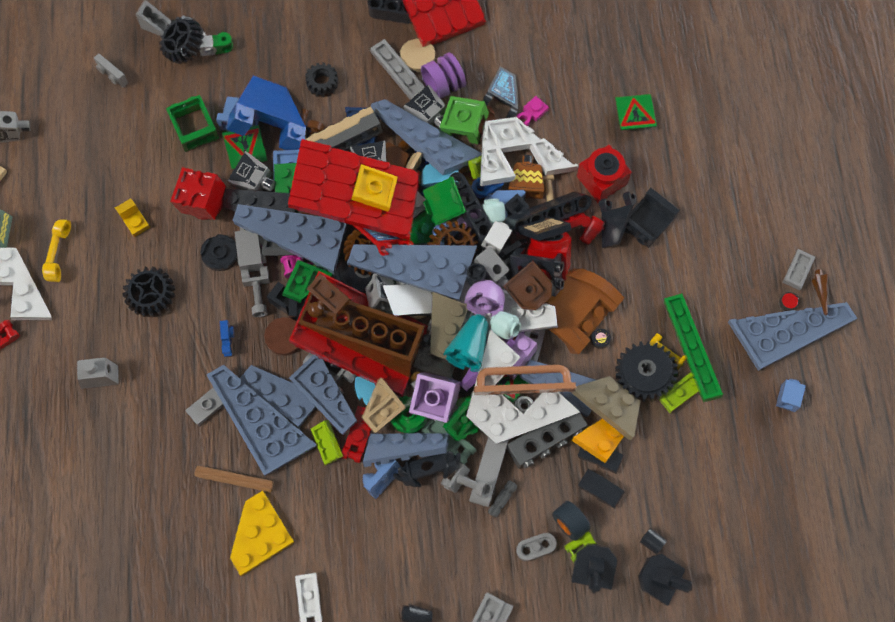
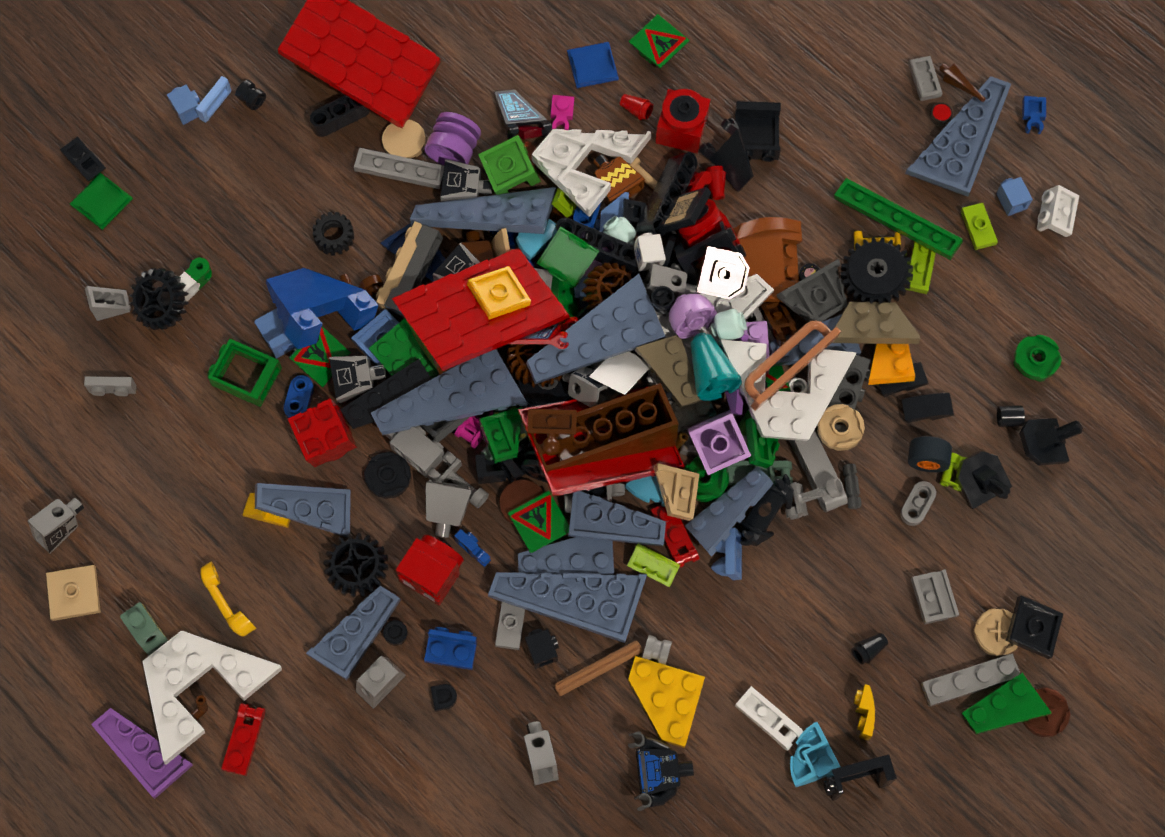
camera: 40 degrees left, 0 degrees up
(102, 335) = (350, 640): none -> sand blue wing
(126, 416) = (443, 697): none -> black tile
(135, 353) = (395, 633): none -> black tile
(145, 502) = (540, 754): none -> light grey torso
(154, 234) = (313, 506): none -> sand blue wing
(156, 391) = (451, 648): none -> blue bracket
(186, 329) = (430, 568): none -> red piece
(207, 576) = (657, 771): none -> torso
(210, 436) = (542, 647): none -> black brick
(212, 164) = (298, 396): none -> blue plate
(233, 298) = (446, 505): none -> light grey torso
(279, 356) = (539, 522): none -> green piece
(279, 498) = (657, 649): none -> light grey wheel
(498, 107) = (529, 131): none -> dark red tile
(522, 464) = (841, 440): none -> tan tile
(549, 350) = (778, 320): none -> reddish brown hinge
(580, 96) = (592, 65): none -> blue piece
(584, 144) = (637, 106): none -> red cone
(590, 354) = (817, 294): none -> dark grey wing
(702, 526) = (1028, 366): none -> green plate
(748, 396) = (979, 226): none -> lime plate
(814, 430) = (1058, 210): none -> white bracket
(857, 350) = (1035, 111): none -> blue plate

